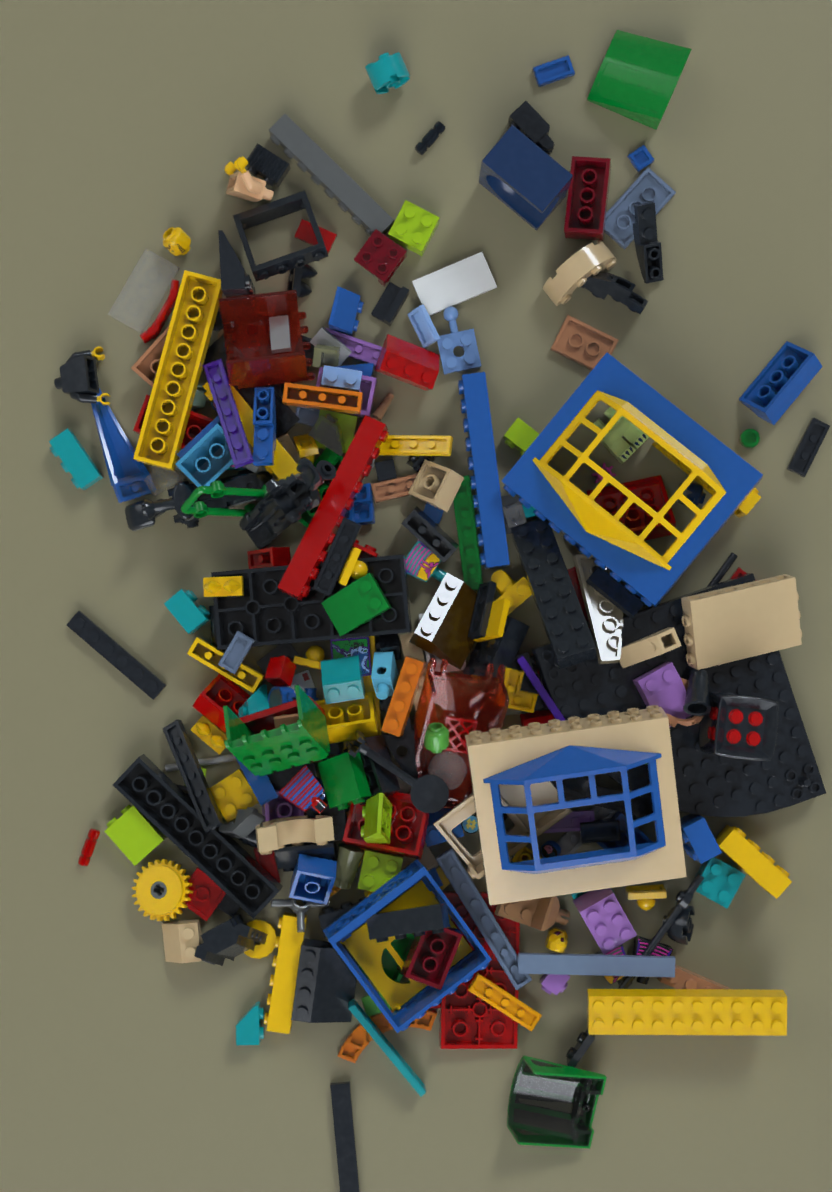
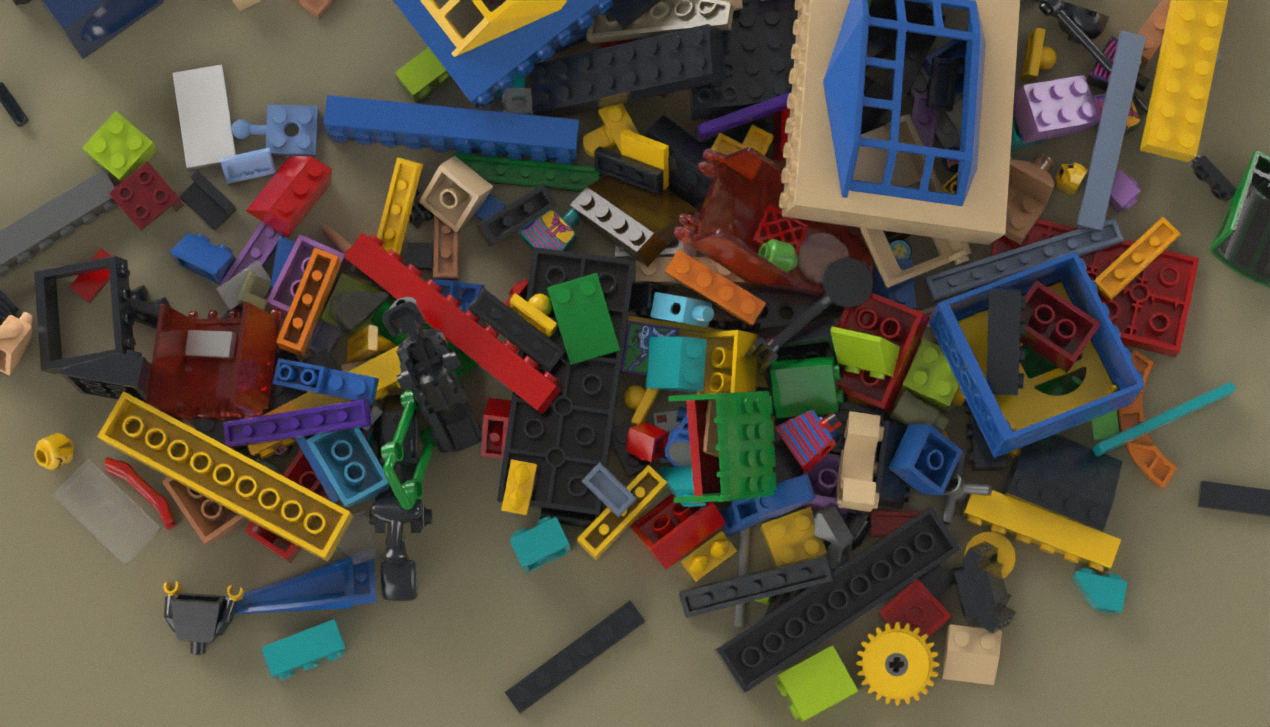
camera: 70 degrees left, 10 degrees down
(341, 378) = (288, 276): light blue plate -> none

